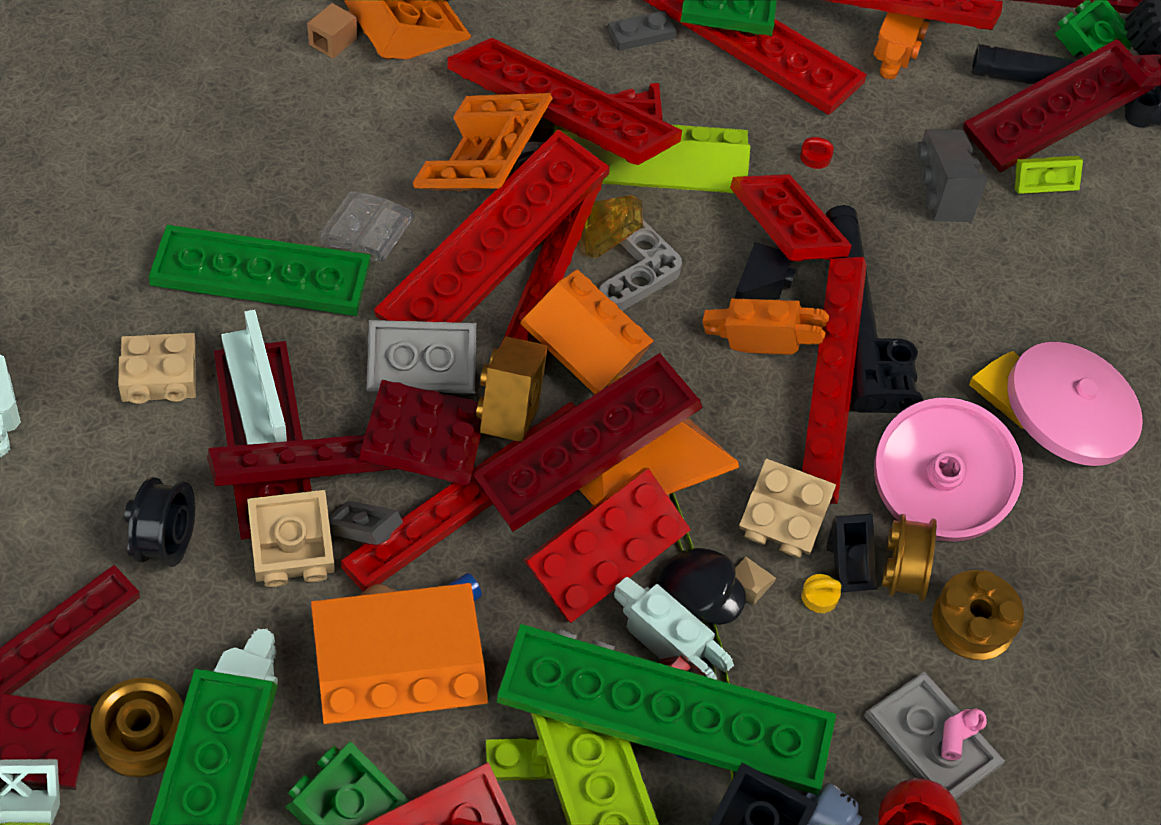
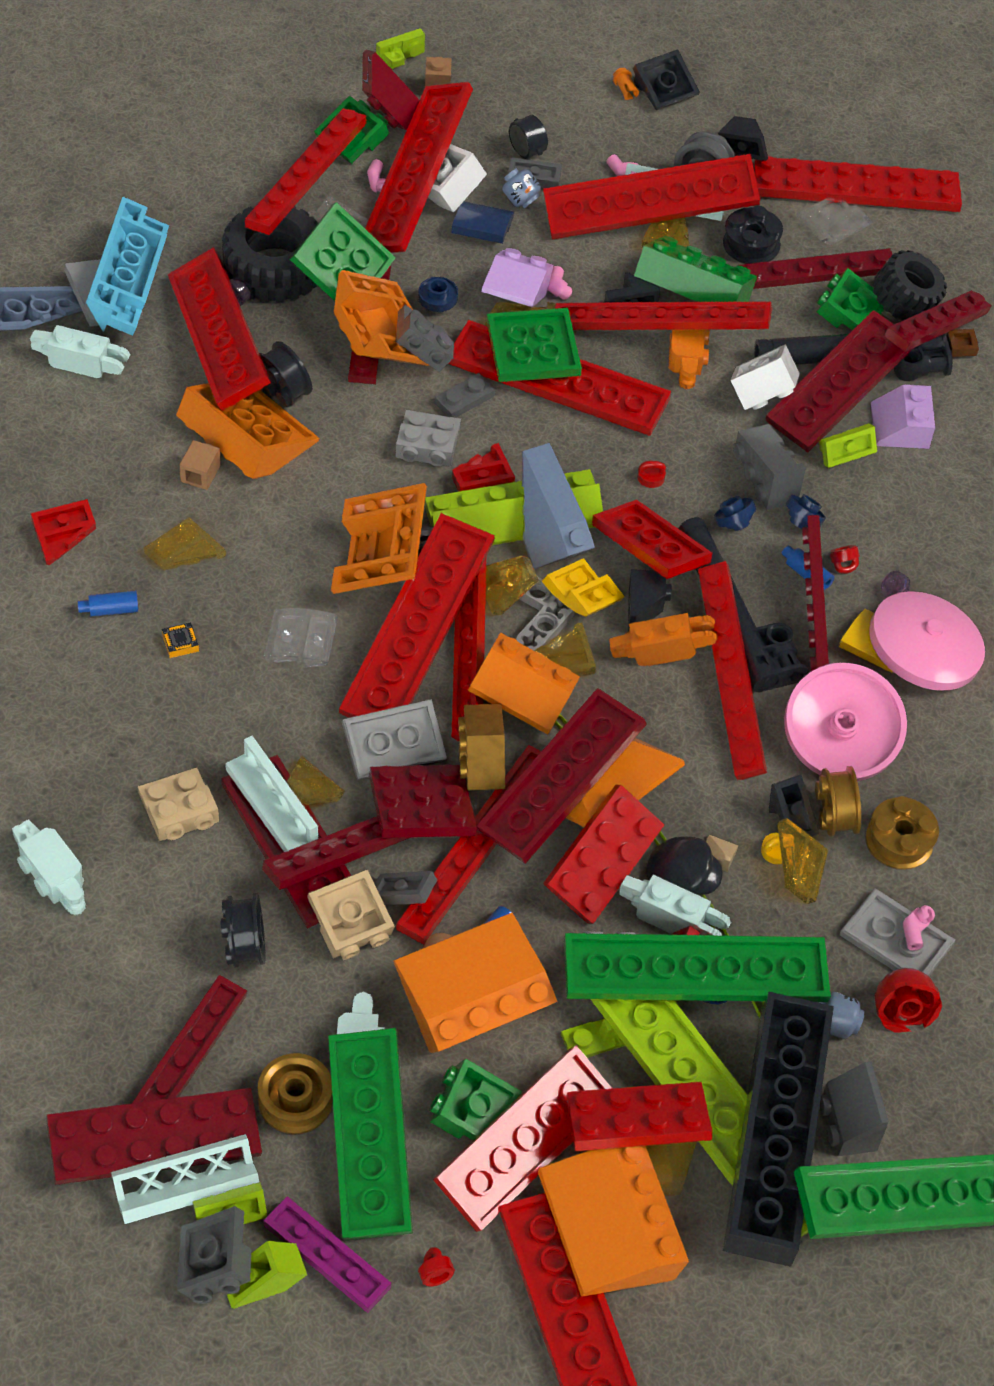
camera: 15 degrees left, 0 degrees up
(163, 59) = (62, 528): none -> red wing
(178, 143) = (110, 603): none -> blue cylinder
(237, 198) = (180, 640): none -> tile
(260, 270) = (228, 698): green plate -> none
(281, 106) = (183, 546): none -> clear yellow wing
(308, 382) = (312, 785): none -> clear yellow wing
(574, 103) = (448, 485): red plate -> none
(587, 58) = (427, 438): none -> light grey plate
(656, 315) = (571, 651): none -> clear yellow wing
(687, 174) = (551, 513): none -> sand blue wedge
(694, 250) = (582, 589): none -> yellow slope
(786, 508) = (730, 787): tan plate -> none
(843, 615) = (801, 860): none -> clear yellow wing
(895, 213) = (735, 513): none -> dark blue plate
(959, 312) = (815, 587): none -> dark red plate
(960, 292) = (795, 560): none -> blue cylinder
(975, 82) = (765, 378): none -> white slope
(975, 230) = (802, 507): none -> dark blue plate
(1007, 286) = (845, 554): none -> red tile
(1056, 331) = (895, 583): none -> clear purple tile
(1121, 160) = (904, 417): none -> lavender slope

